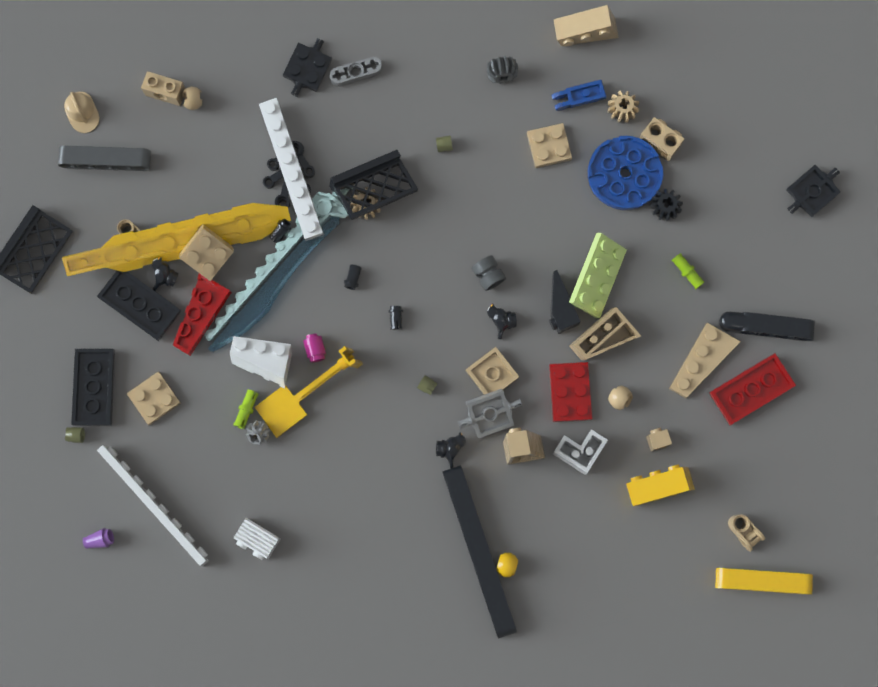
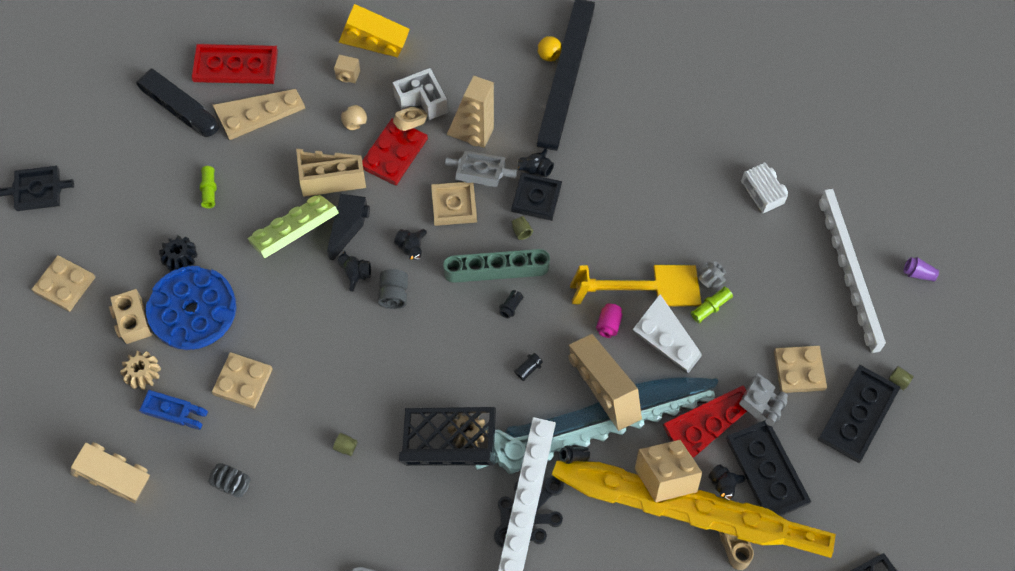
camera: 150 degrees left, 15 degrees down
(172, 351) = (758, 395): none -> light grey plate
(290, 293) = (607, 381): none -> tan wedge
(430, 332) = (488, 272): none -> sand green beam
(432, 419) = (536, 196): none -> black plate
(529, 273) = (354, 269): none -> black animal
(575, 422) = (409, 118): none -> tan plate
(731, 135) = (63, 283): none -> tan plate

